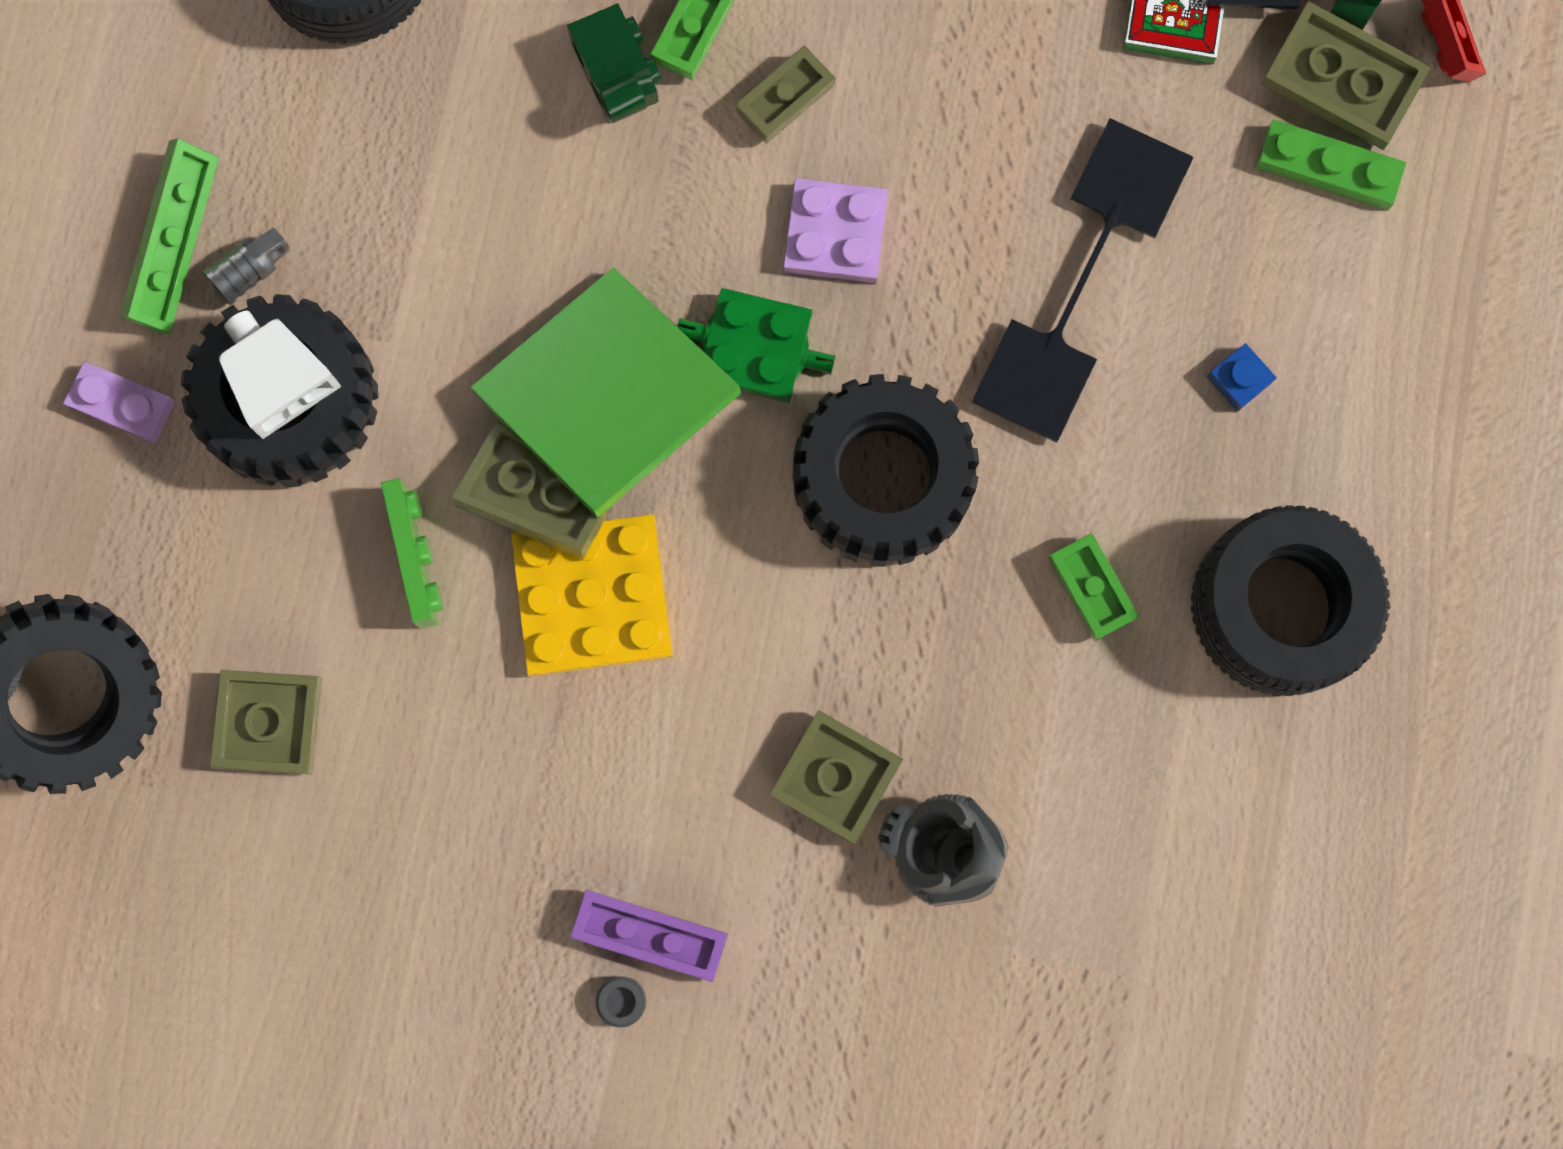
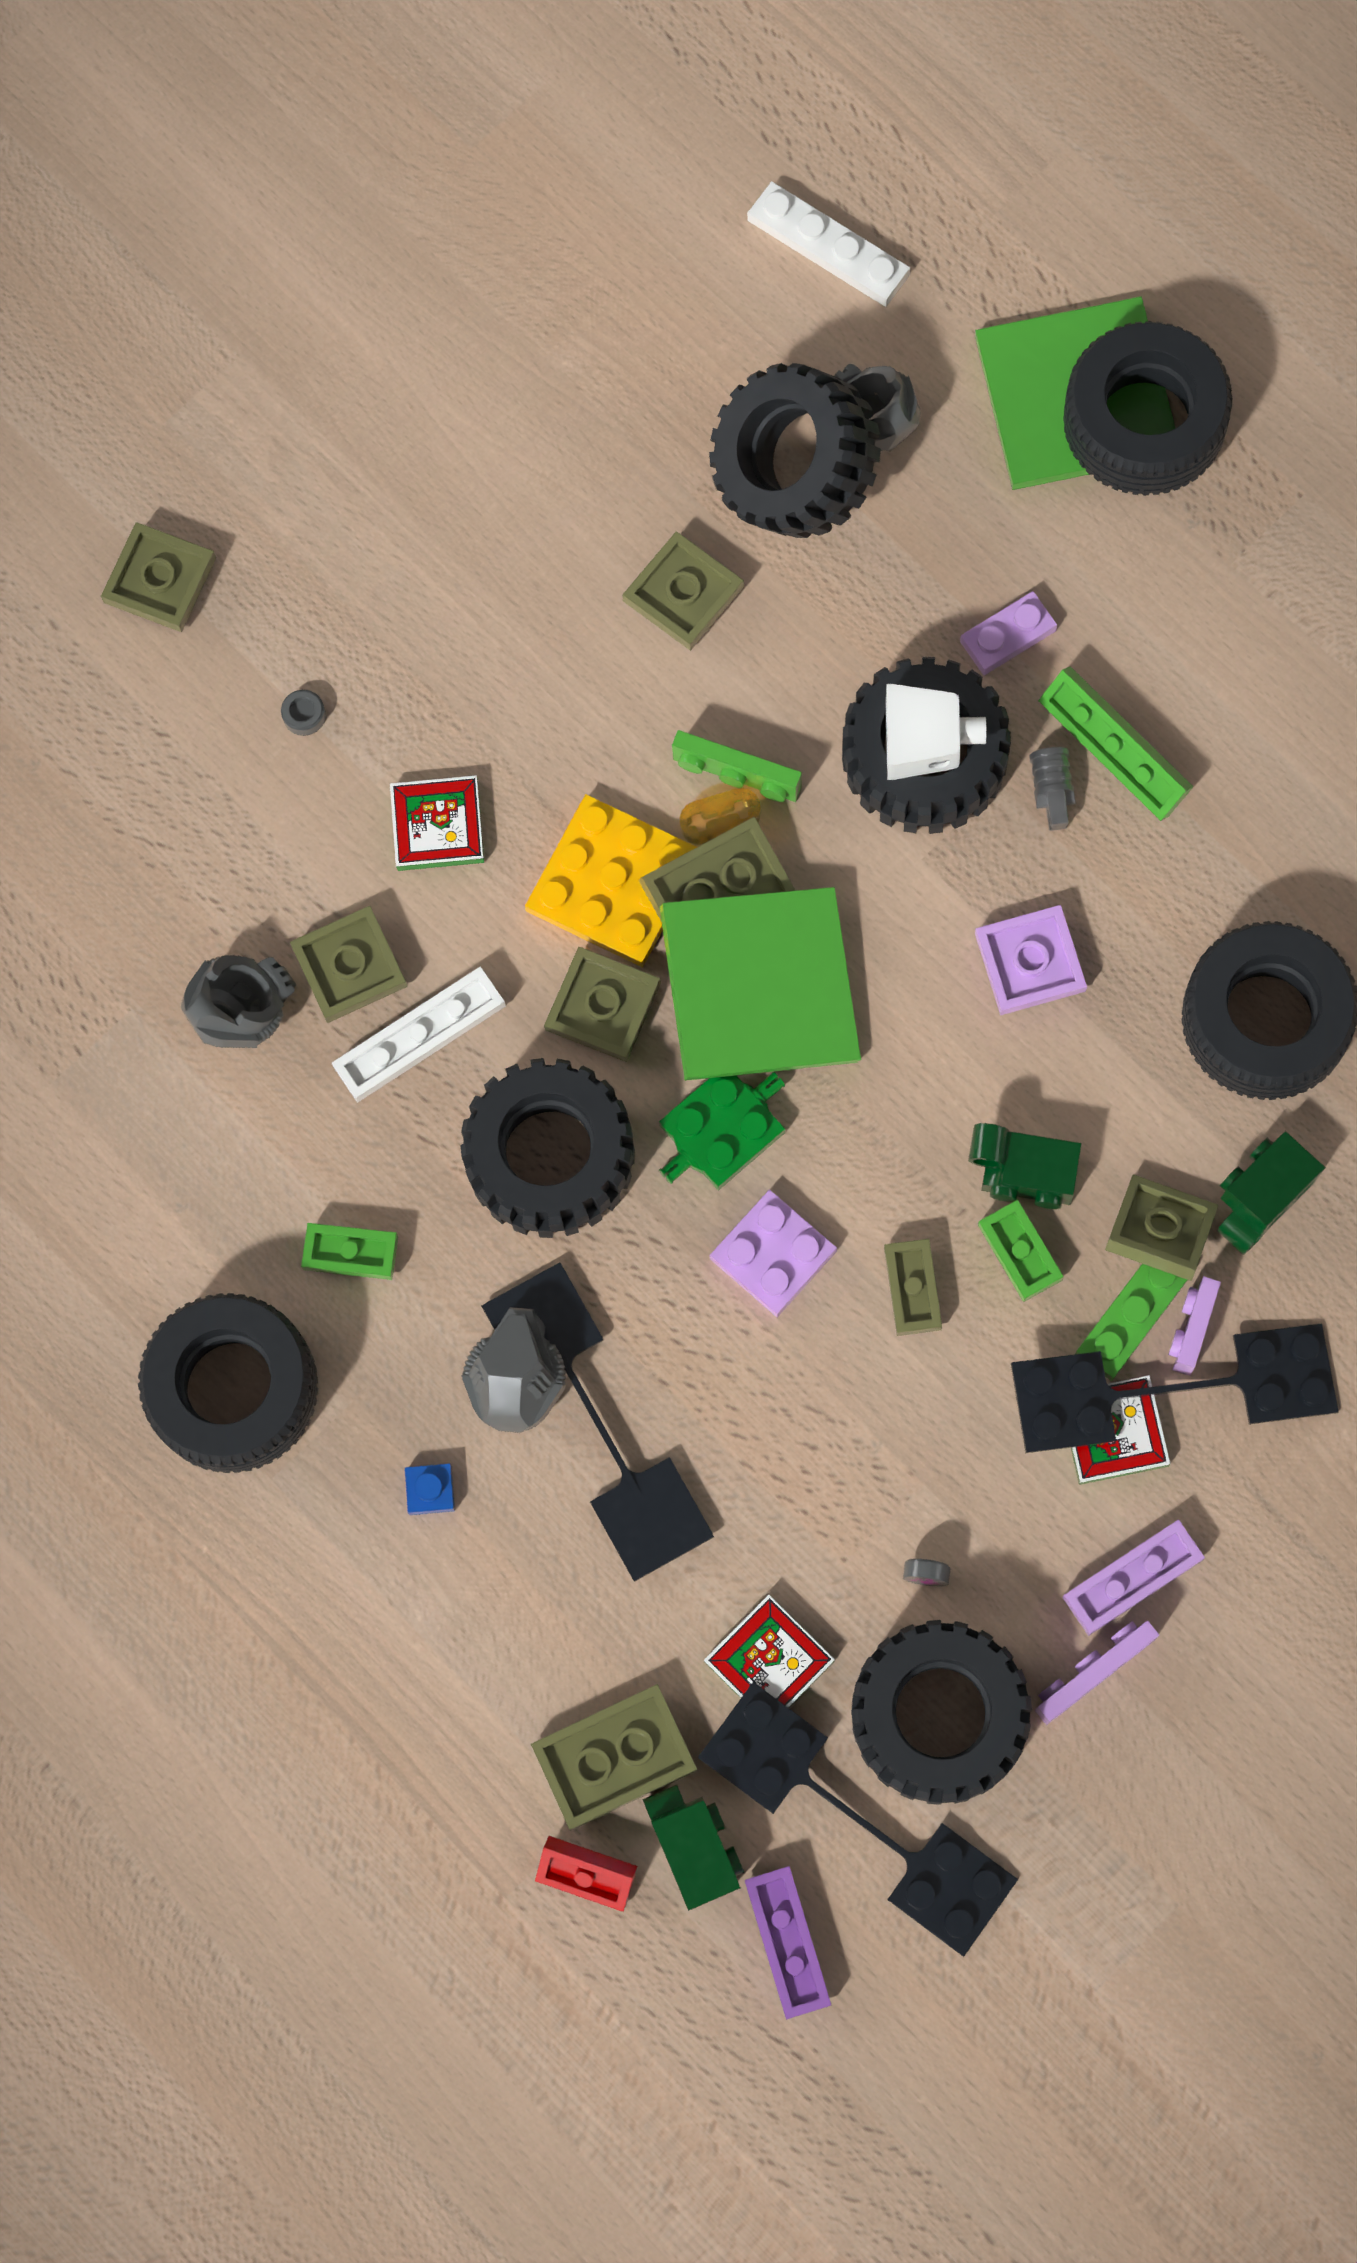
camera: 135 degrees right, 5 degrees down
(424, 182) = (1030, 960): none -> lavender plate
(474, 532) = (717, 806): none -> clear yellow beam
(645, 795) = (437, 823): none -> tile
(649, 935) = (333, 759): medium lavender plate -> none
(716, 522) = (602, 1004): none -> olive plate
(857, 666) = (418, 1034): none -> white plate
(1099, 364) = (514, 1374): none -> dark grey helmet
(1331, 164) = (550, 1692): bright green plate -> none

